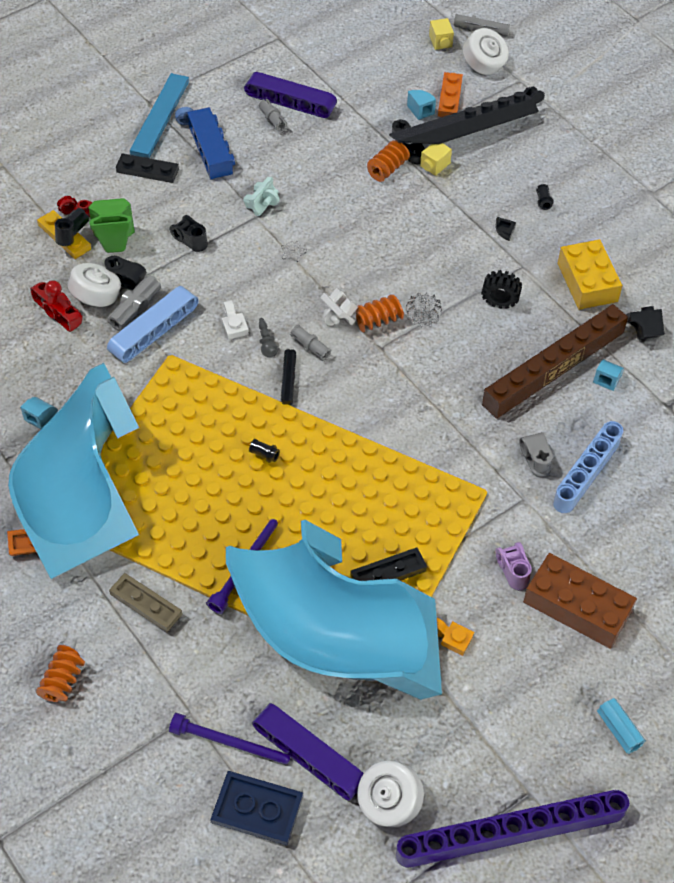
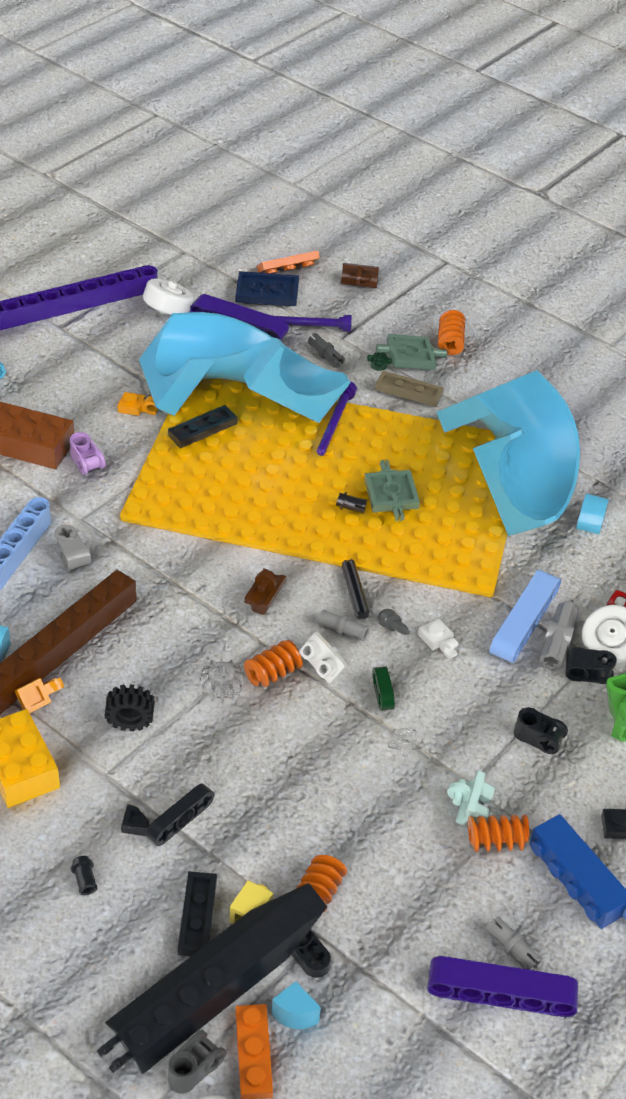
camera: 165 degrees right, 10 degrees down
(117, 808) = (360, 275): none -> reddish brown hips
(121, 655) = (411, 351): none -> sand green plate
(161, 662) = (379, 361): none -> clear green plate
(215, 856) = (288, 263): none -> plate
(218, 680) = (326, 350): none -> dark grey pin
(221, 457) = (391, 490): none -> sand green plate
(253, 170) = (498, 832): none -> orange piece
(296, 283) = (383, 688): none -> dark green beam
(369, 377) = (264, 591): none -> reddish brown hips
(471, 162) = (197, 912): none -> black plate
(472, 221) = (180, 814): none -> black beam
(488, 88) = (198, 1058): none -> dark grey piece
(569, 324) = (36, 694): none -> light orange plate

